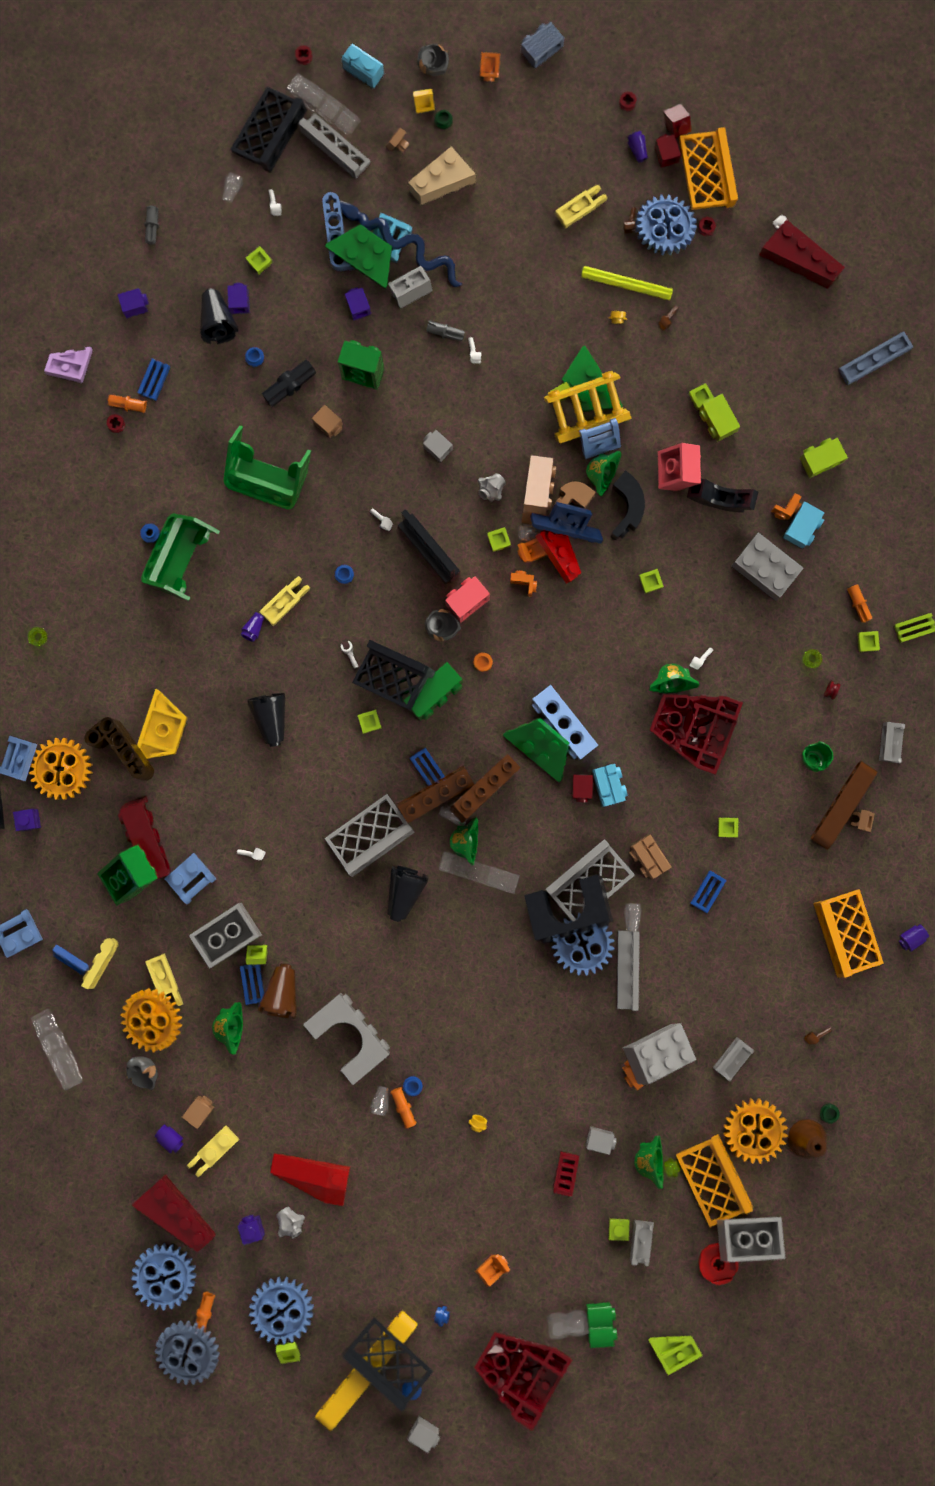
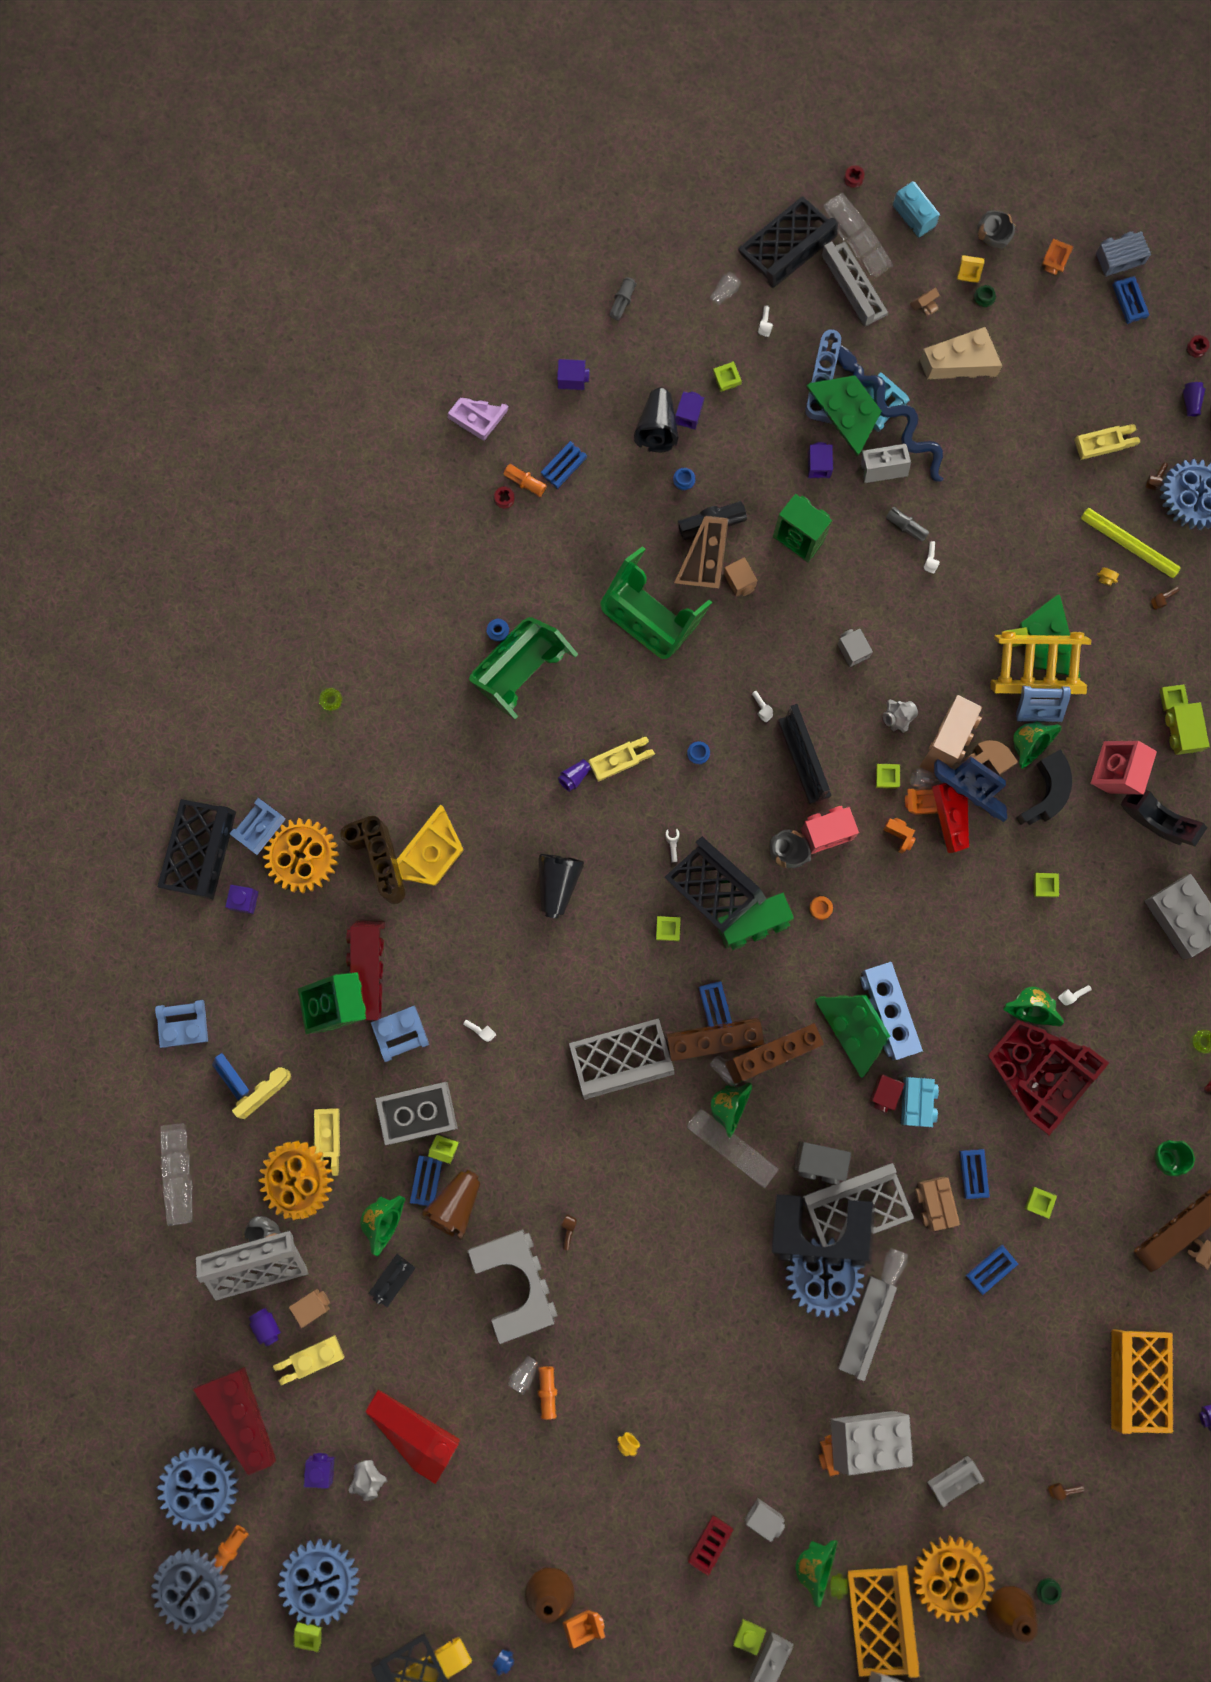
camera: 20 degrees right, 5 degrees down
(139, 1090) = (254, 1255): none -> light grey fence
(254, 1068) = (391, 1280): none -> black hinge
(293, 413) = (706, 556): none -> medium nougat wedge
(374, 974) = (568, 1223): none -> reddish brown hand
(404, 891) = (639, 1138): black cone -> none
(412, 1086) = (567, 1371): blue plate -> none
(458, 1253) = (550, 1594): none -> reddish brown cone
(550, 857) = (822, 1161): none -> dark grey brick
(570, 93) = (1123, 303): none -> blue tile
(675, 816) = (965, 1177): none -> blue tile

